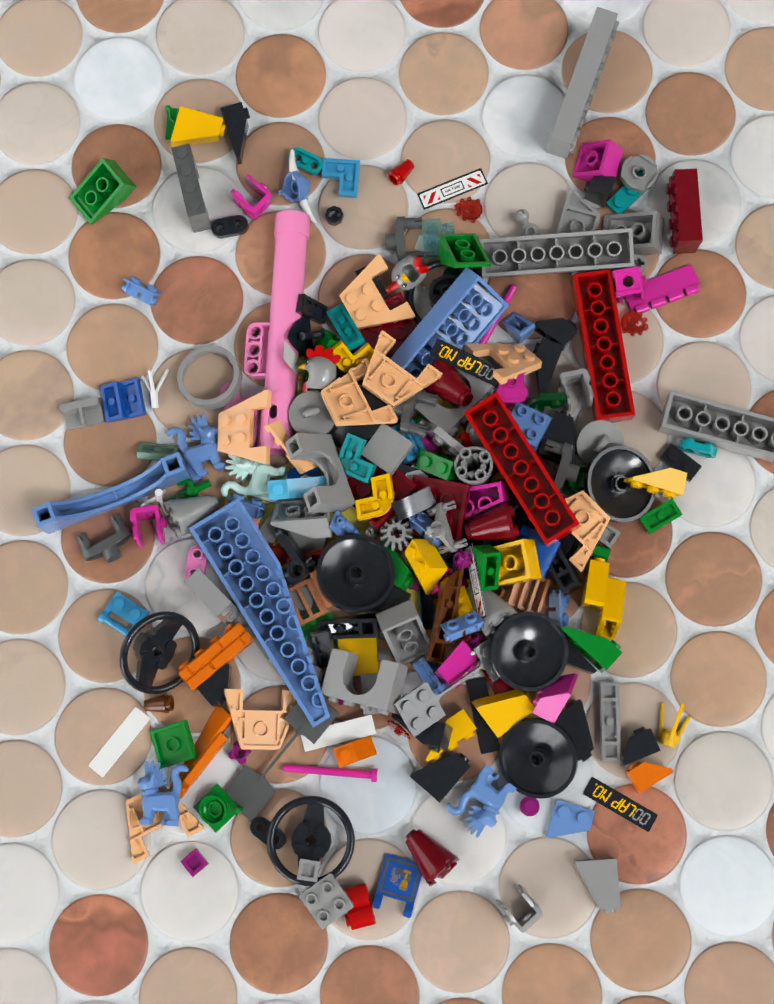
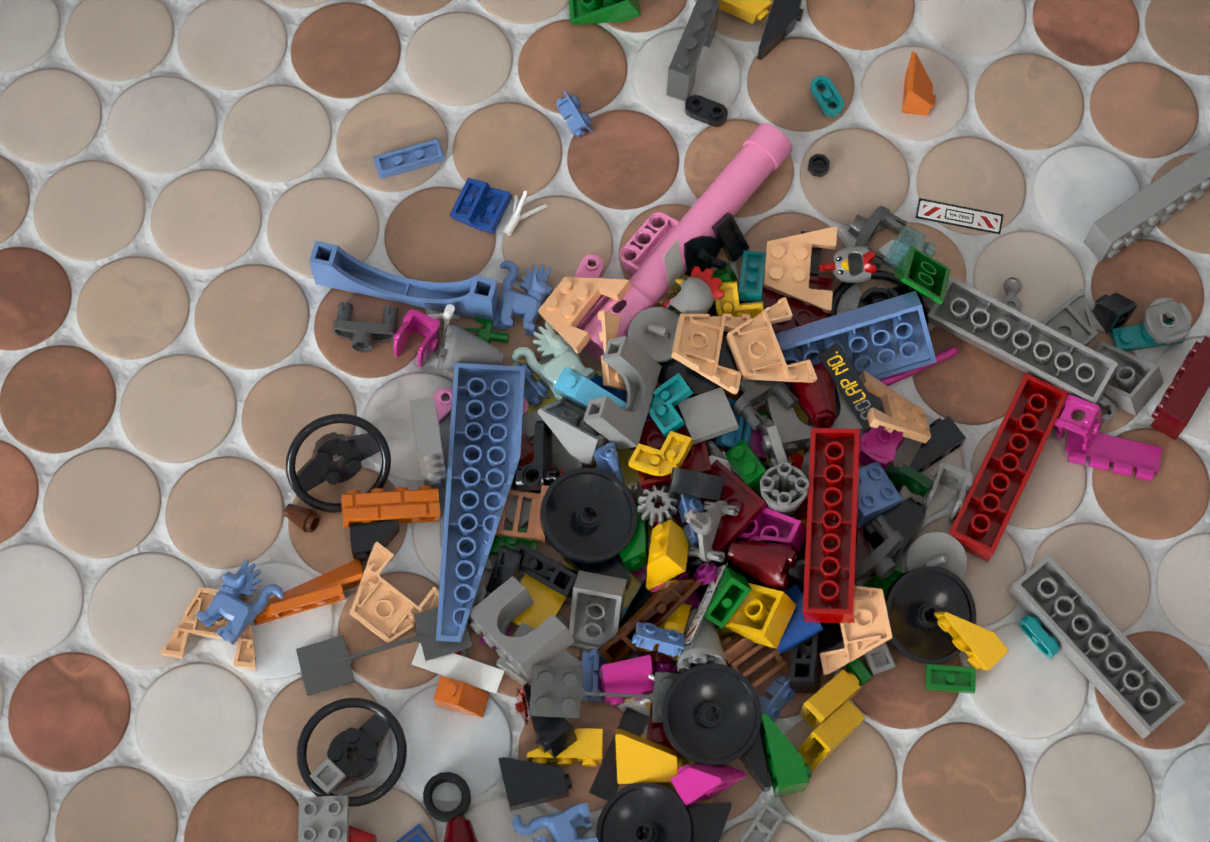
camera: 30 degrees right, 10 degrees down
(48, 399) = (409, 158): none -> medium blue tile
(82, 413) = (433, 192): light grey panel -> none
(119, 742) = (235, 528): white sticker -> none
(124, 608) = (335, 402): dark azure plate -> none
(155, 451) = (469, 267): sand green plate -> none
(173, 744) = (287, 564): green tile -> none
(194, 862) = (221, 695): magenta plate -> none
(217, 808) = (283, 658): green hat -> none
(221, 400) = (586, 265): light grey piece -> none
(234, 753) = (339, 617): magenta plate -> none
(261, 206) = (749, 109): dark pink piece -> none
(262, 835) = (307, 714): black plate -> none
(297, 187) = (799, 114): medium blue helmet -> none
(332, 771) = (462, 733): dark pink bar -> none
(344, 170) = (860, 132): dark azure plate -> none
(364, 115) = (917, 89): none -> orange slope
(400, 172) = (916, 166): red cone -> none
(407, 824) = (438, 779): none -> black tyre
(469, 209) = (962, 246): clear red piece -> none
(518, 327) = (932, 392): medium blue slope -> none
(556, 330) = (970, 420): black slope -> none
(598, 159) = (1133, 280): dark pink slope -> none
(634, 323) = (1058, 467): clear red piece -> none
(678, 460) = (1010, 634): black plate -> none

